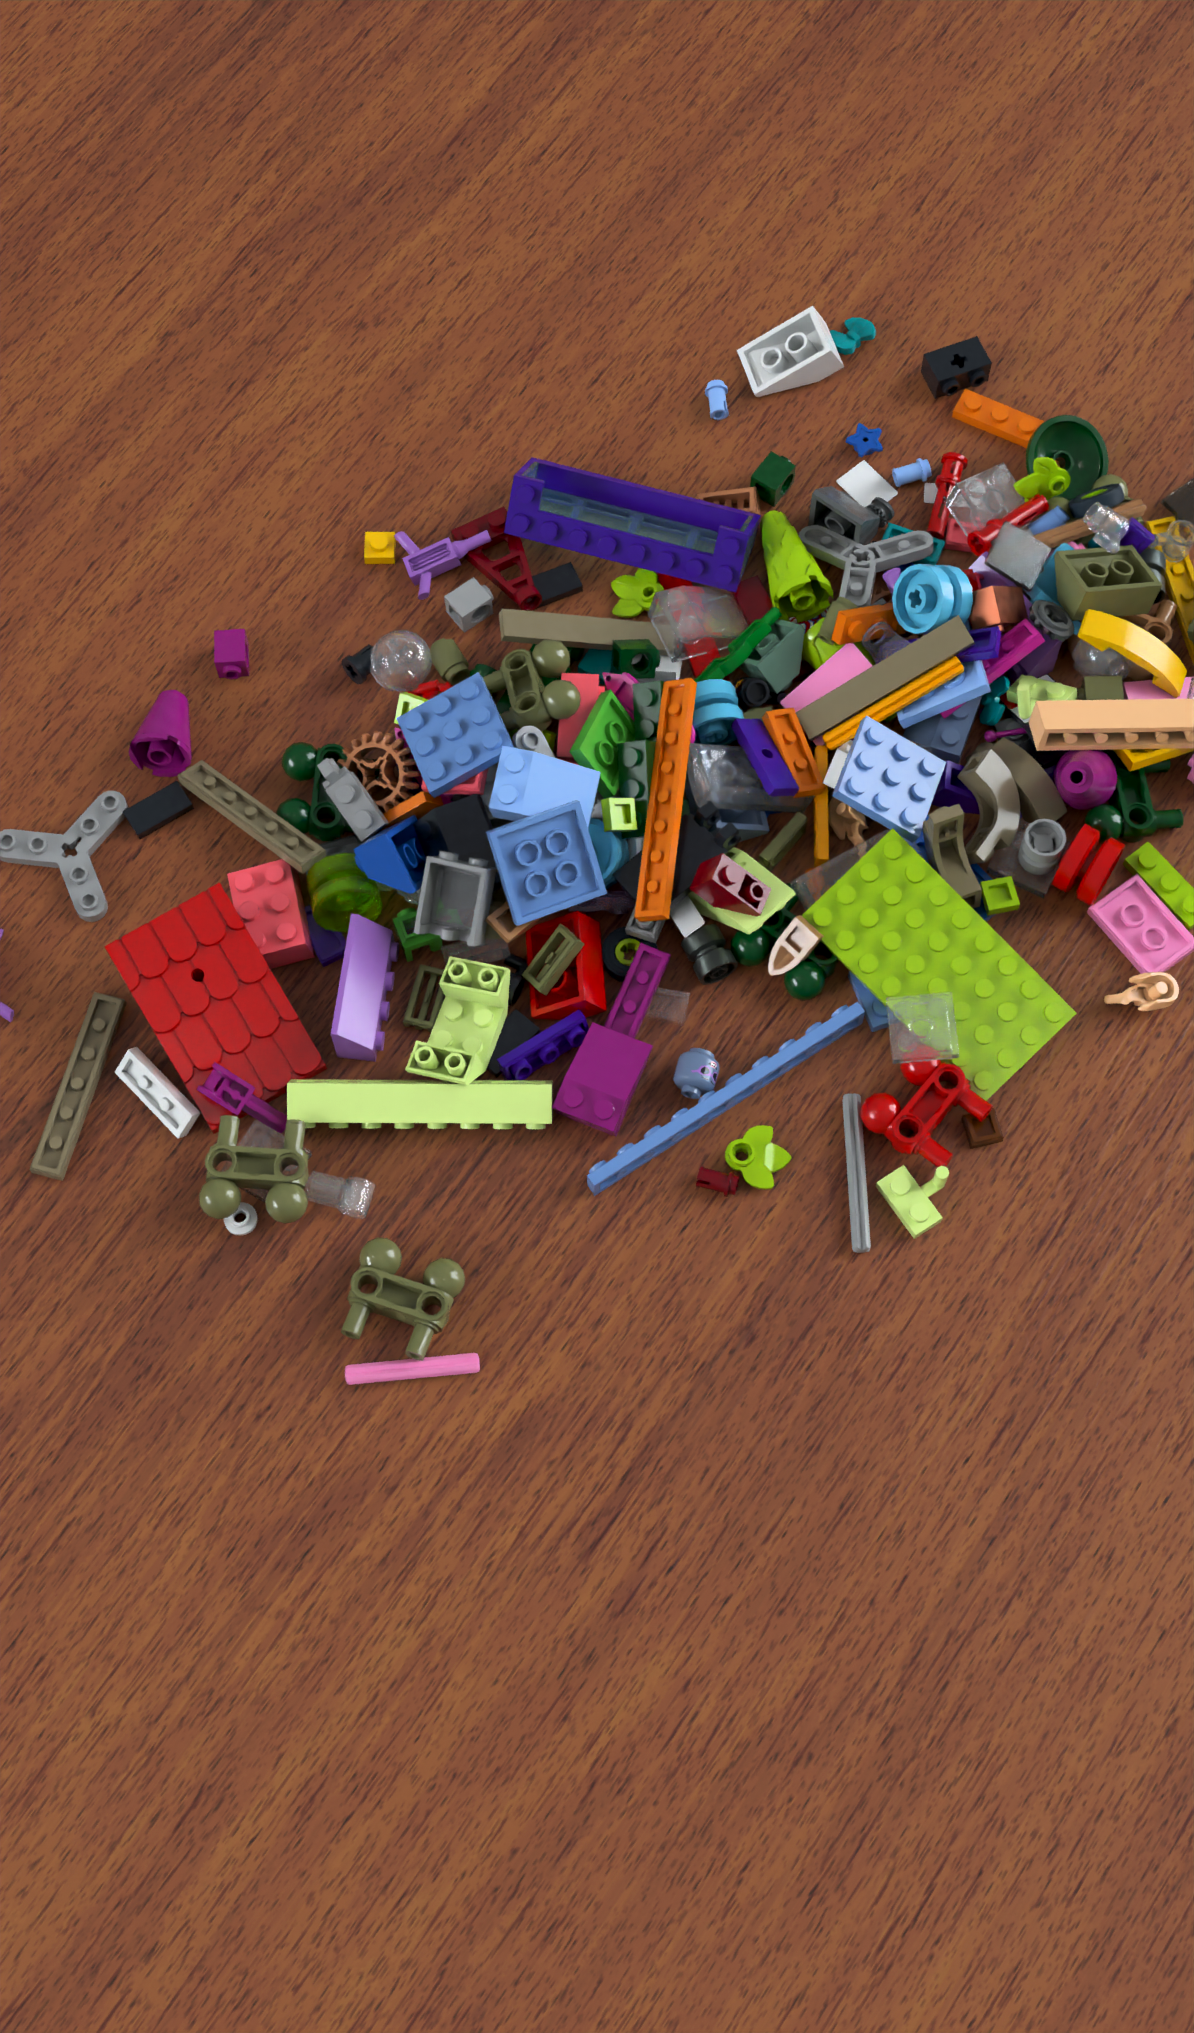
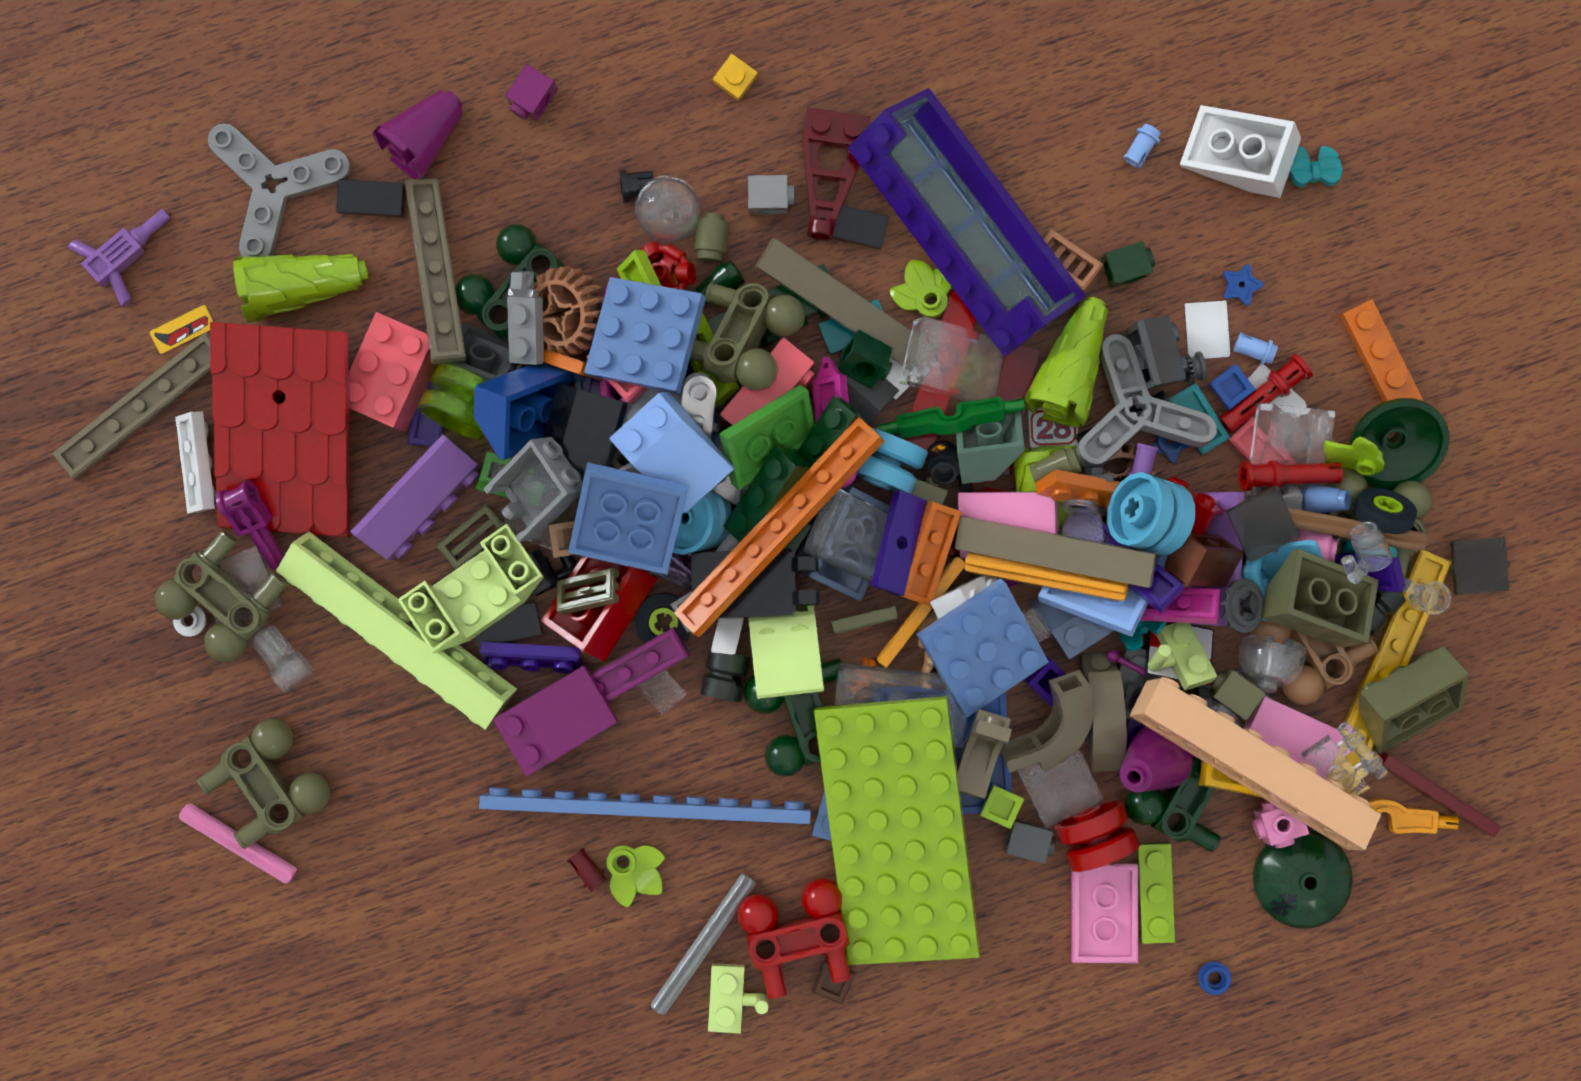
camera: 40 degrees right, 20 degrees up
(71, 1007) = (181, 329): none -> yellow sticker
(142, 897) = (289, 282): none -> lime cone
(436, 558) = (759, 125): medium lavender piece -> none
(619, 814) = (726, 514): lime plate -> none
(696, 1072) = (636, 770): sand blue head -> none
(730, 886) = (770, 648): dark red slope -> none
(793, 946) = (792, 728): plate -> none
(916, 508) = (1231, 387): none -> blue plate
(922, 1027) = (839, 879): clear plate -> none
(956, 367) = (1398, 270): black brick -> none
(1041, 846) = (1070, 794): light grey wheel -> none
(1041, 912) = (1029, 841): none -> dark grey brick
(1137, 645) = (1294, 678): yellow slope -> none
(1151, 993) = (1062, 976): light nougat piece -> none

